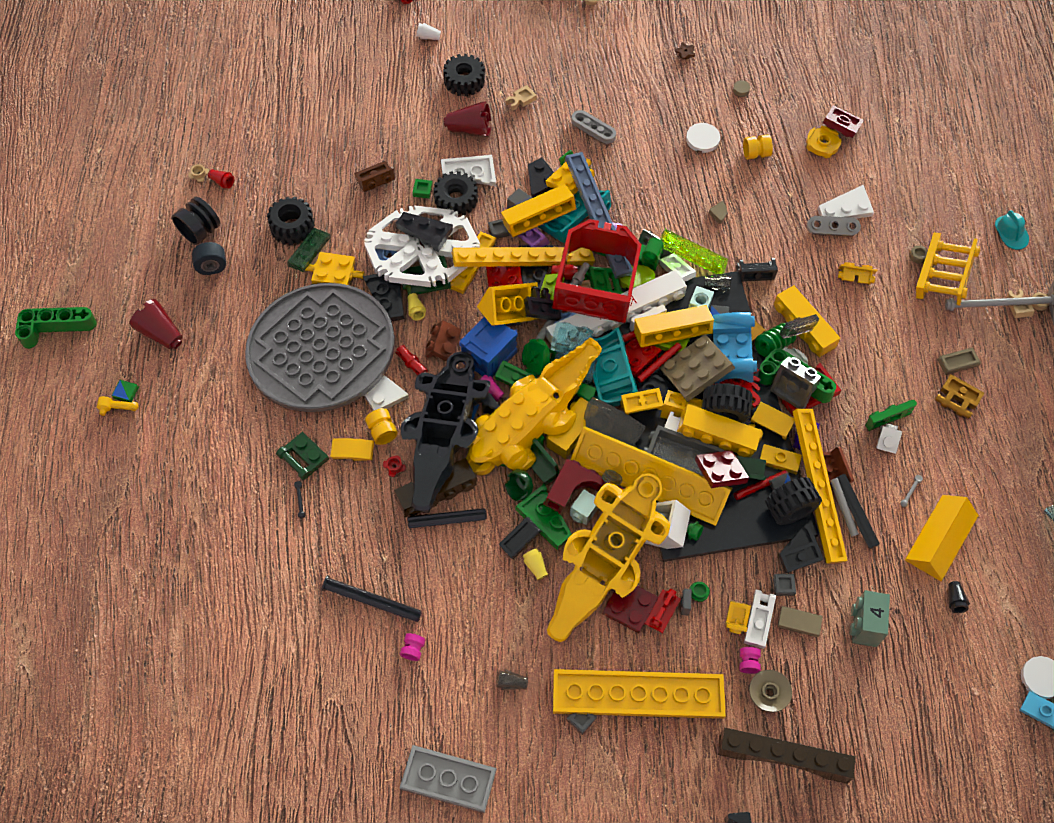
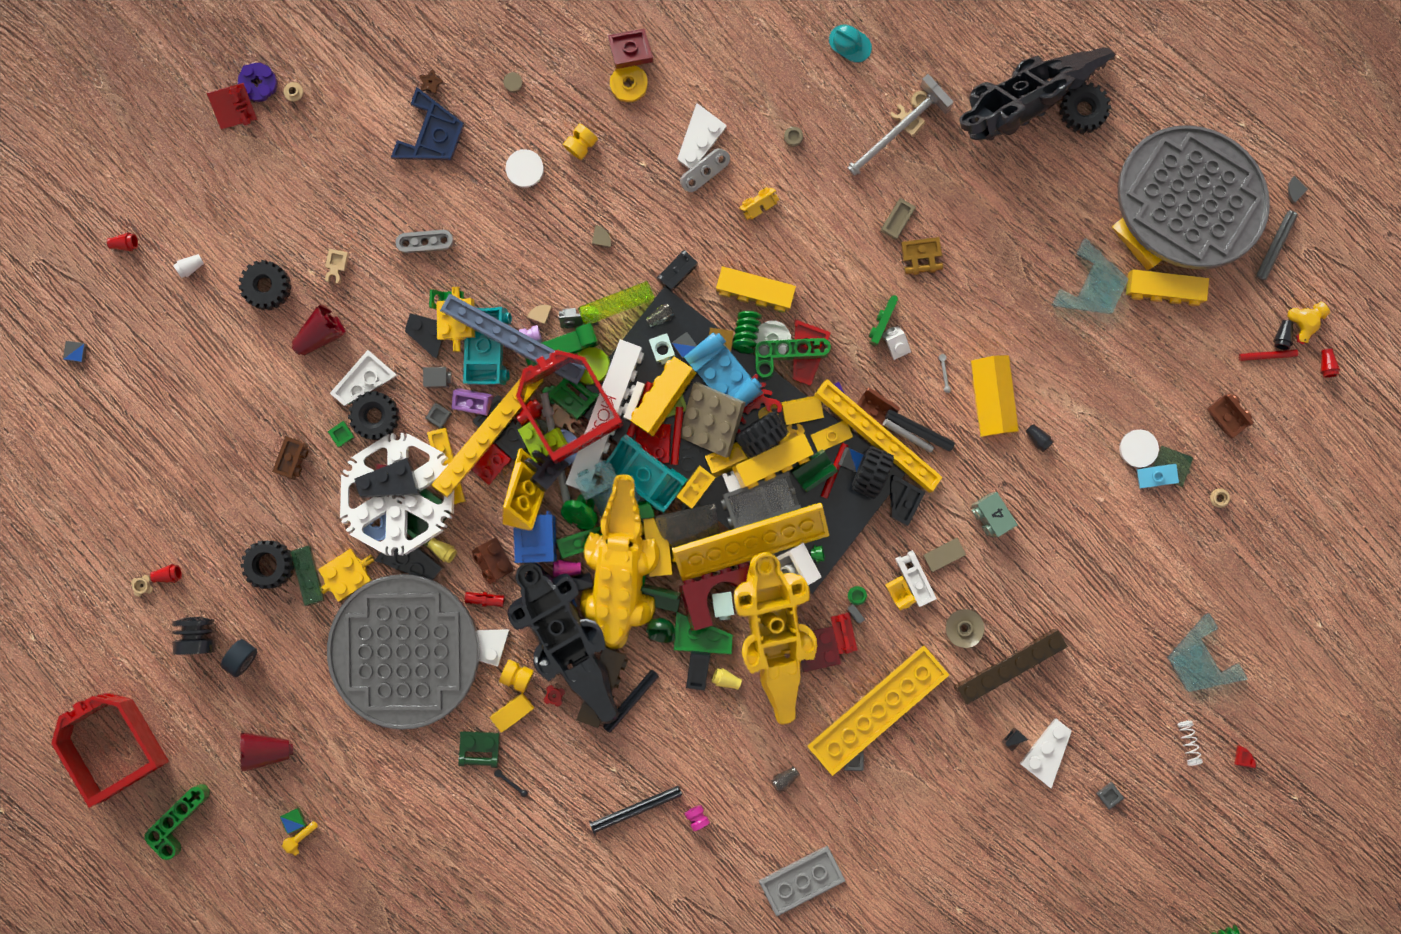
camera: 40 degrees left, 25 degrees up
(57, 269) = (74, 763): none -> red container
(308, 25) = (74, 351): none -> dark grey tile
(538, 210) = (461, 379): yellow brick -> none
(612, 477) = (726, 569): clear smoke tile -> none
(631, 222) = (540, 313): none -> tan tile
(661, 79) = (437, 136): none -> dark blue wing
(673, 262) = (616, 329): plate -> none
(721, 469) = (801, 494): plate -> none
(750, 660) = (933, 618): dark pink wheel -> none
(784, 584) = (911, 535): dark grey tile -> none
(795, 382) = (796, 365): flat silver plate -> none
(799, 326) = (758, 310): clear smoke plate -> none
(932, 258) = (809, 135): yellow fence -> none

